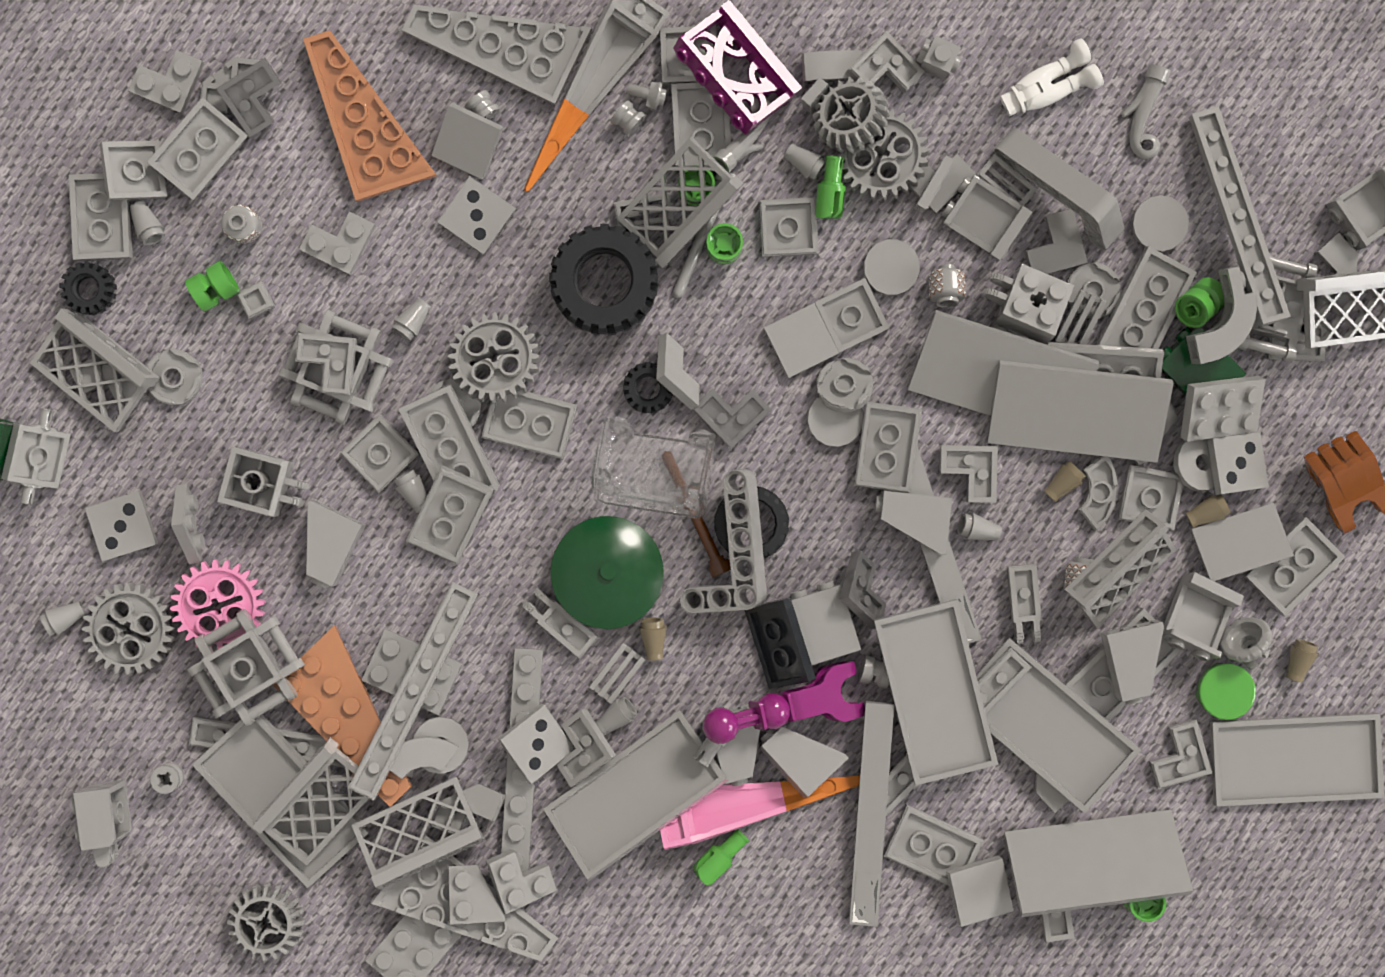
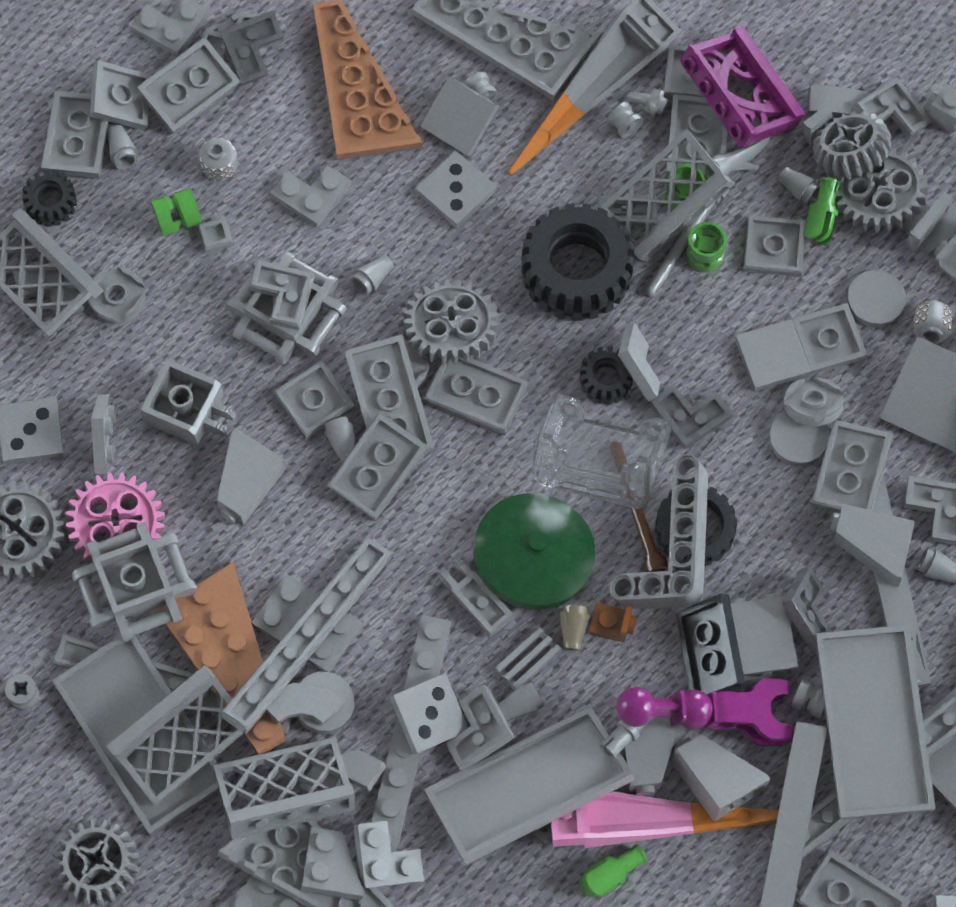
camera: 15 degrees right, 20 degrees down
(688, 627) = (612, 622): none -> dark orange bracket

